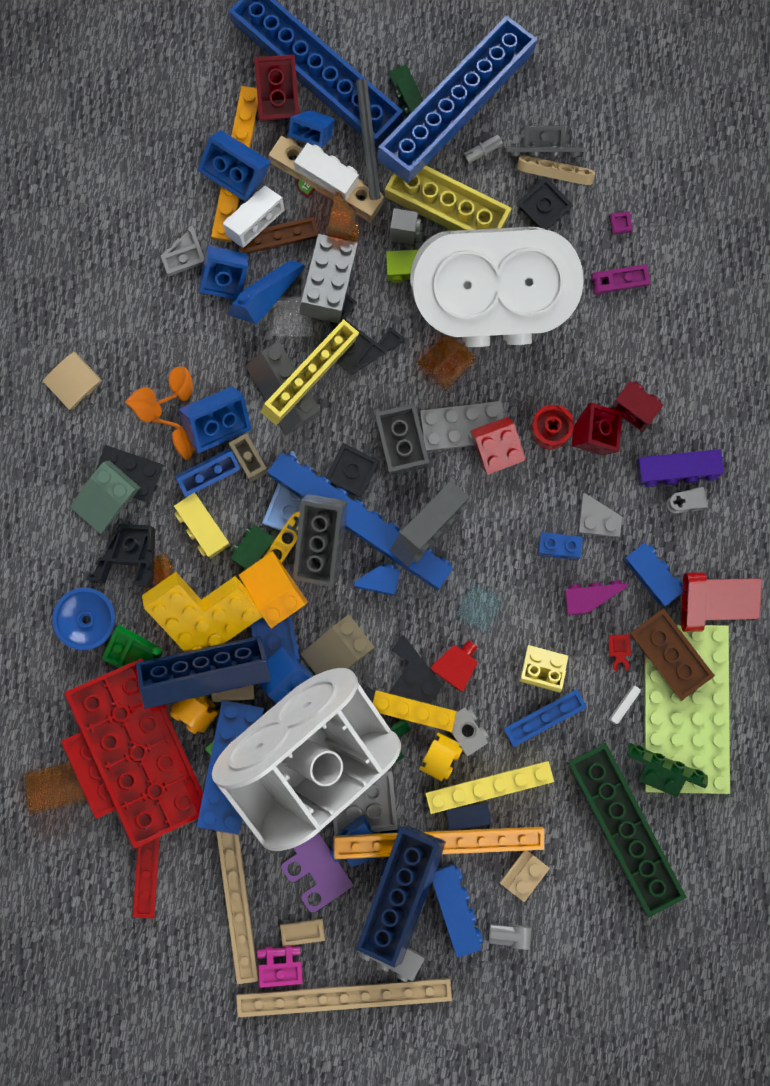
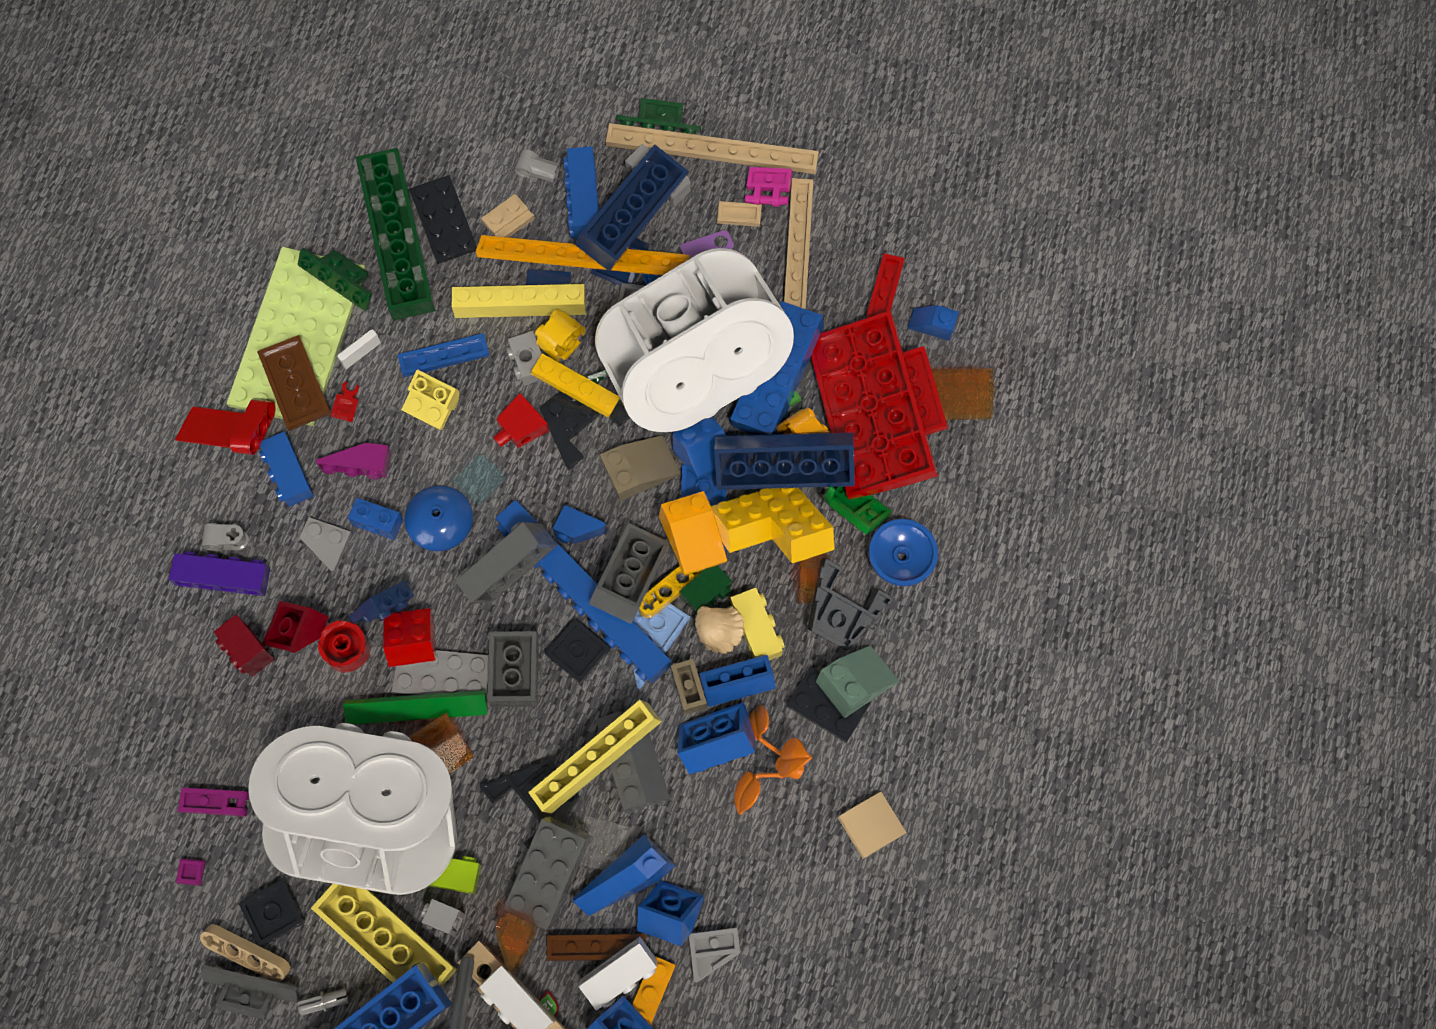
camera: 170 degrees left, 10 degrees down
(94, 857) = (934, 321): none -> blue slope
(232, 512) = (719, 628): none -> tan hair
(403, 1022) = (660, 114): none -> dark green bracket
(476, 391) = (415, 707): none -> green tile
(504, 578) = (445, 530): none -> blue dish
(527, 465) = (383, 603): none -> dark blue plate
(586, 860) = (443, 219): none -> black plate

